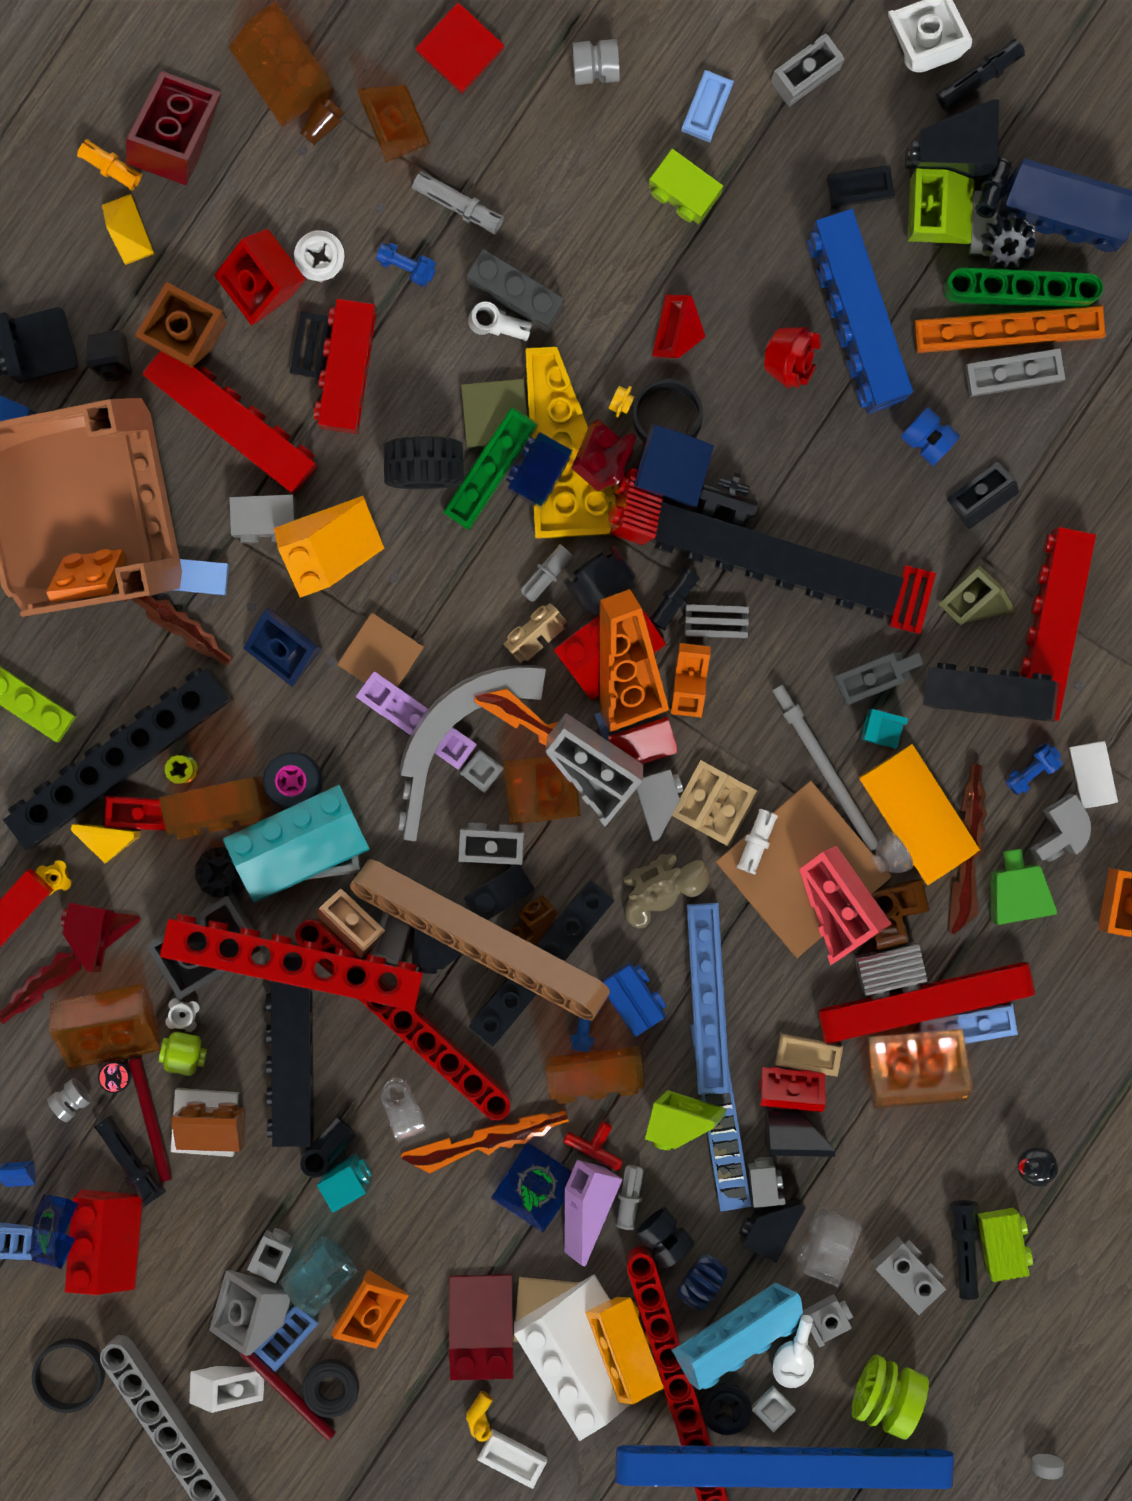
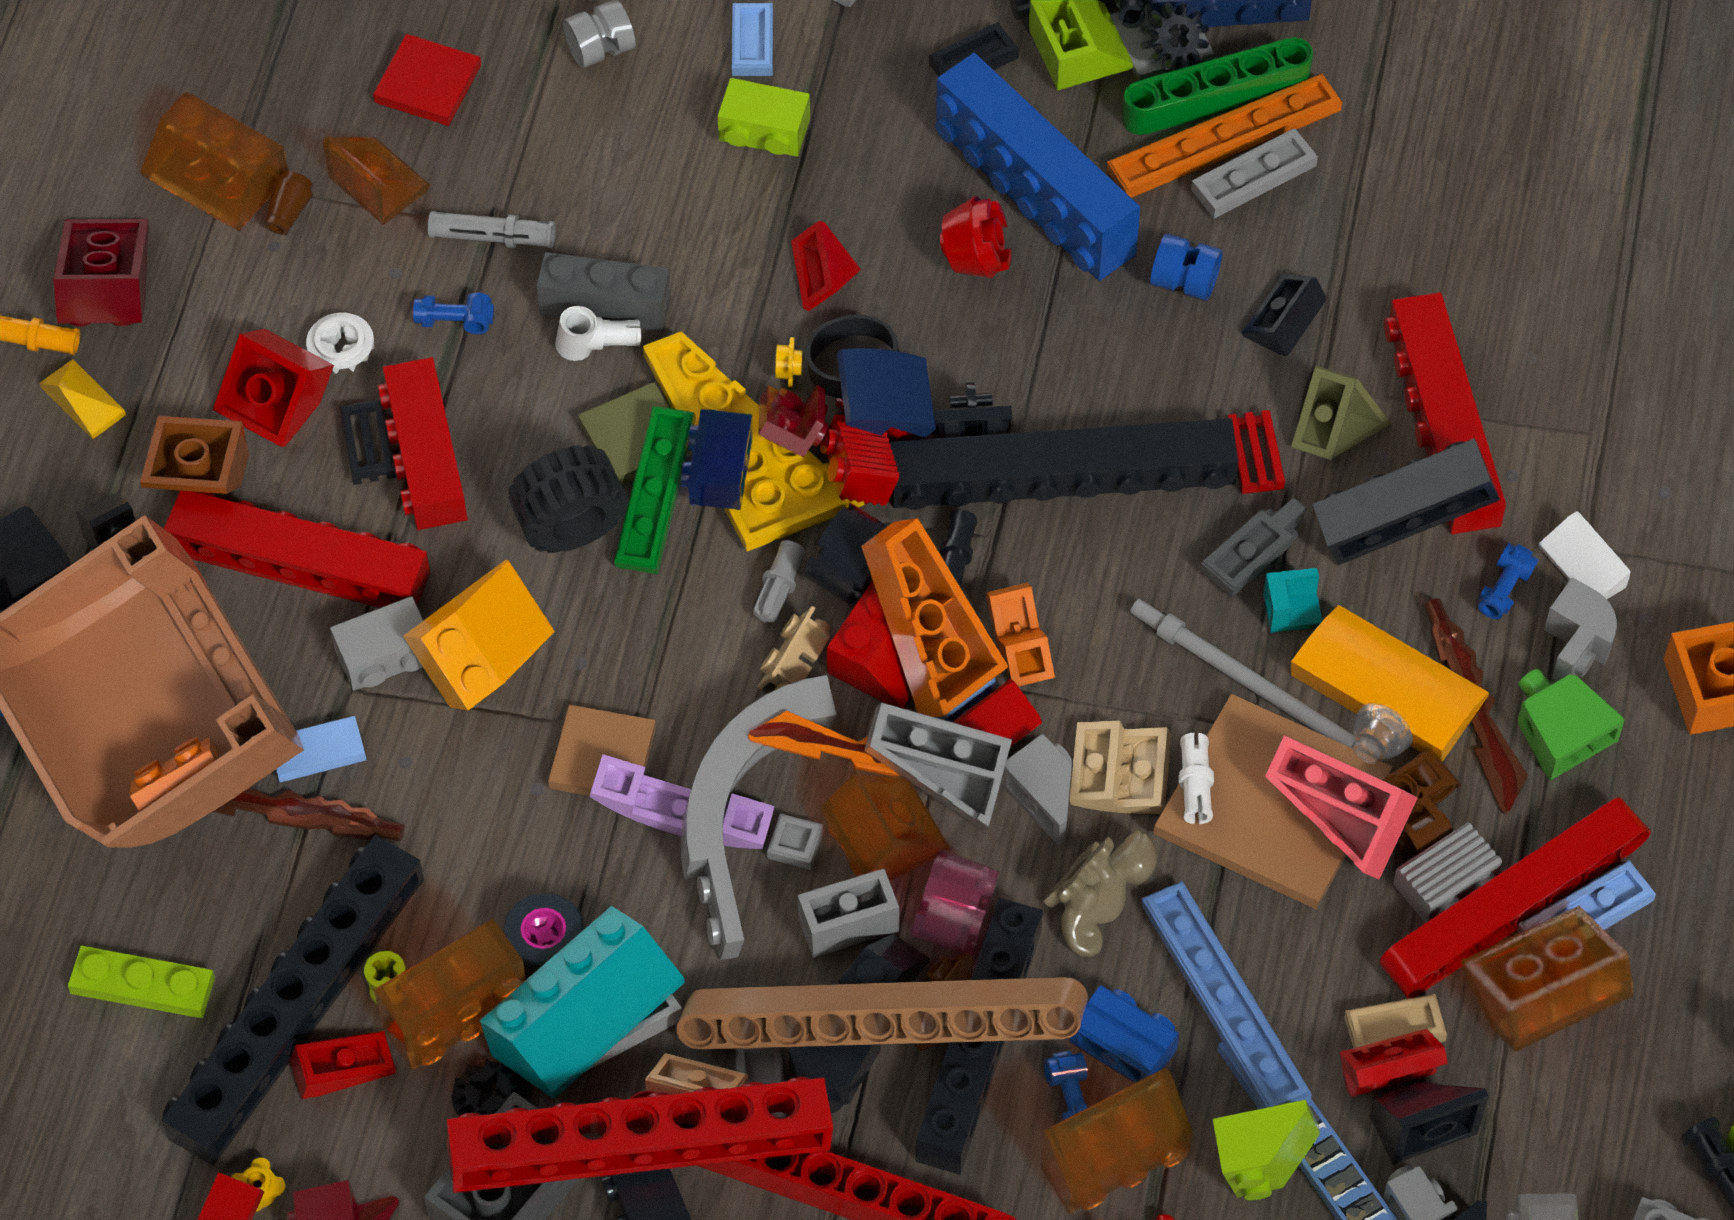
camera: 25 degrees left, 30 degrees down
(105, 841) = (313, 1105): yellow slope -> none
(281, 647) = (467, 780): dark blue slope -> none
(562, 867) = (954, 902): none -> clear pink brick
(743, 622) = (1019, 555): light grey tile -> none

